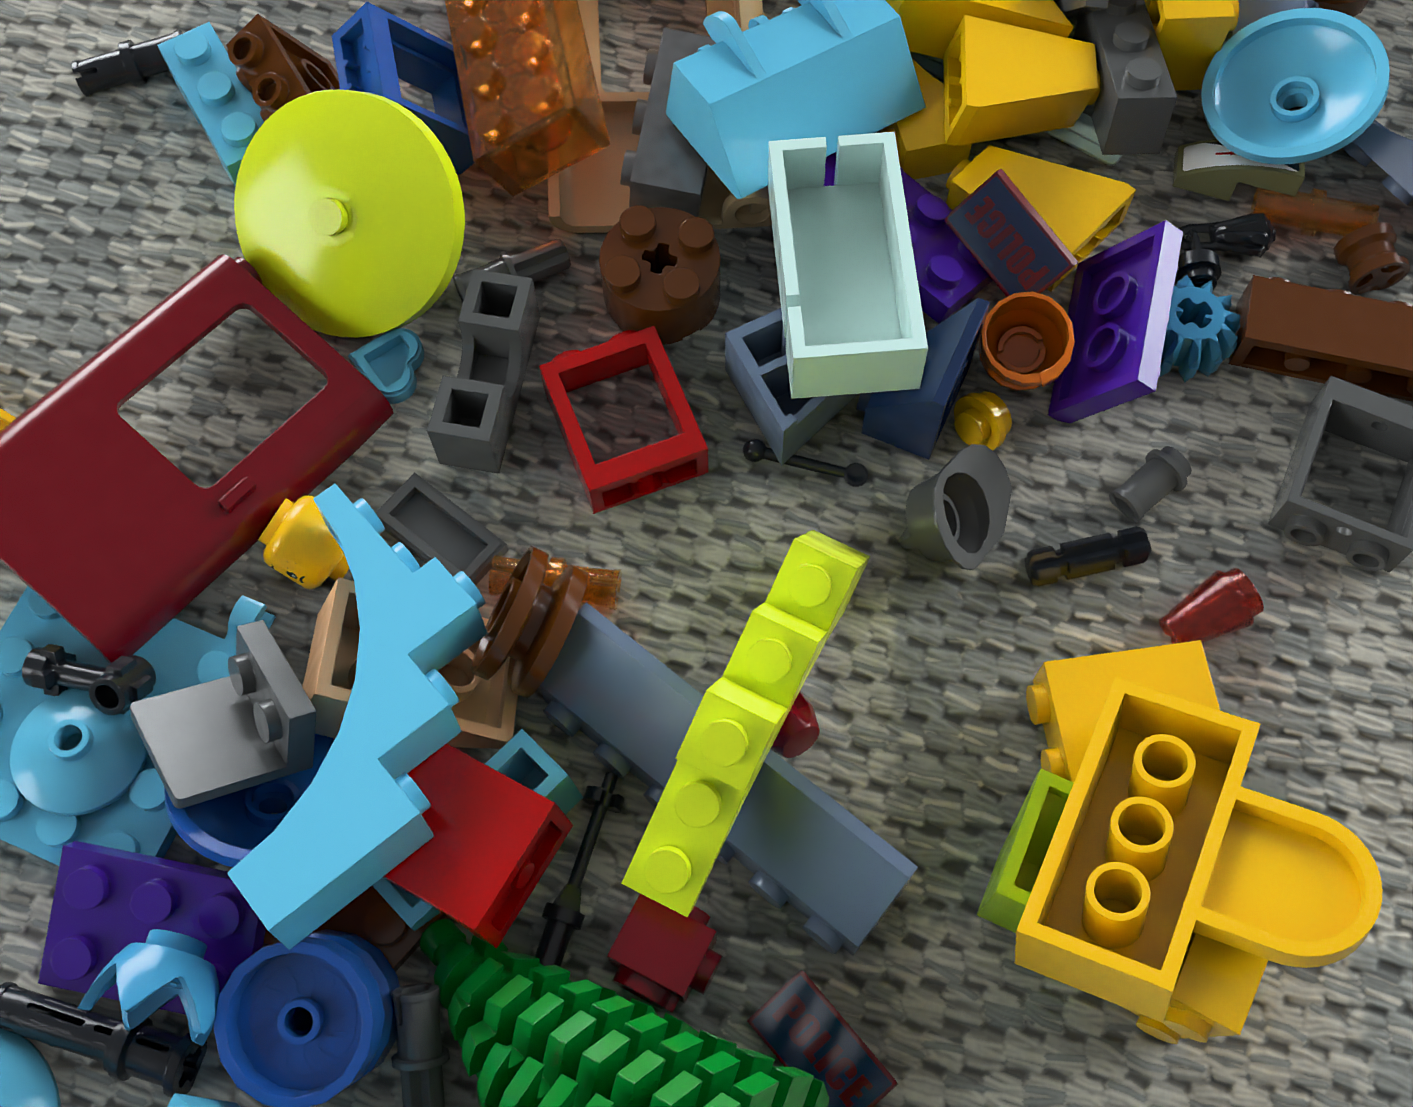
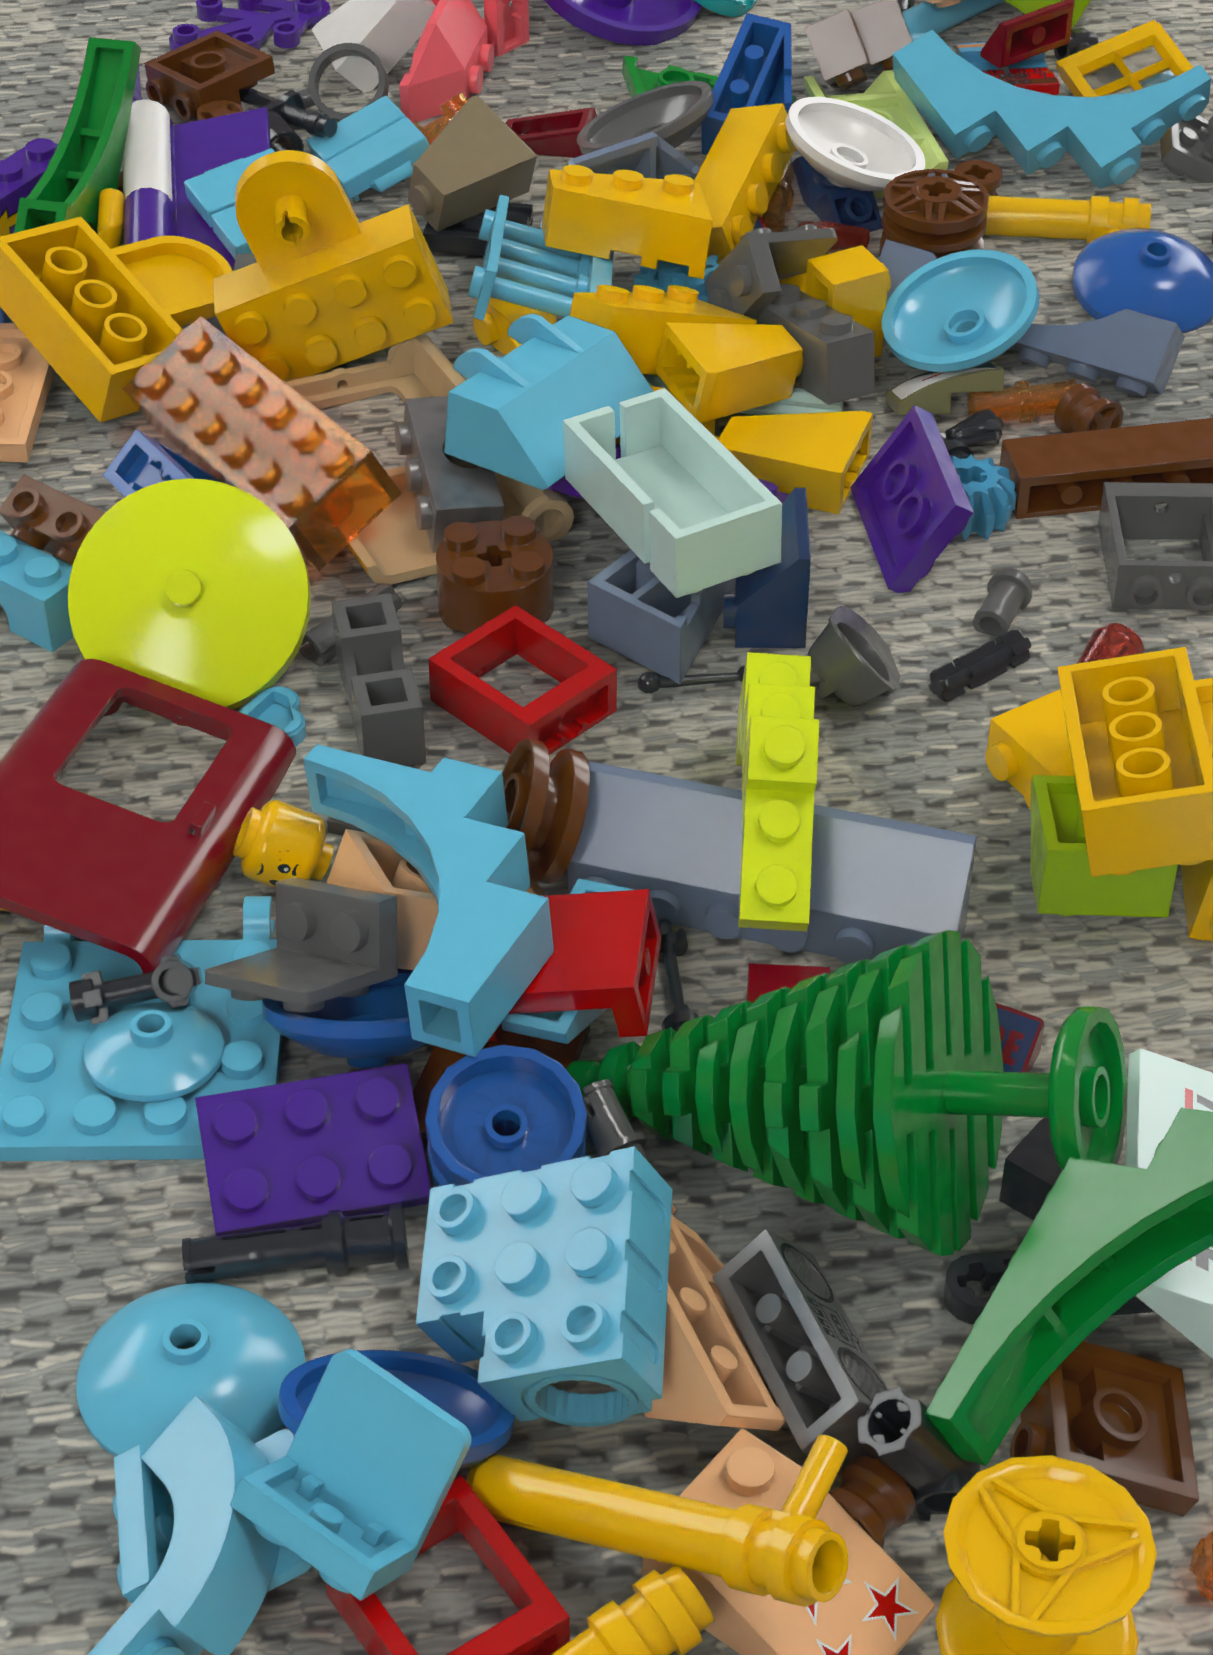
camera: 25 degrees left, 25 degrees down
(155, 974) = (362, 1138): dark azure piece -> none
(982, 419) = (832, 592): yellow plate -> none
(1010, 237) = (791, 460): slope -> none
(1019, 332) = (846, 525): orange helmet -> none

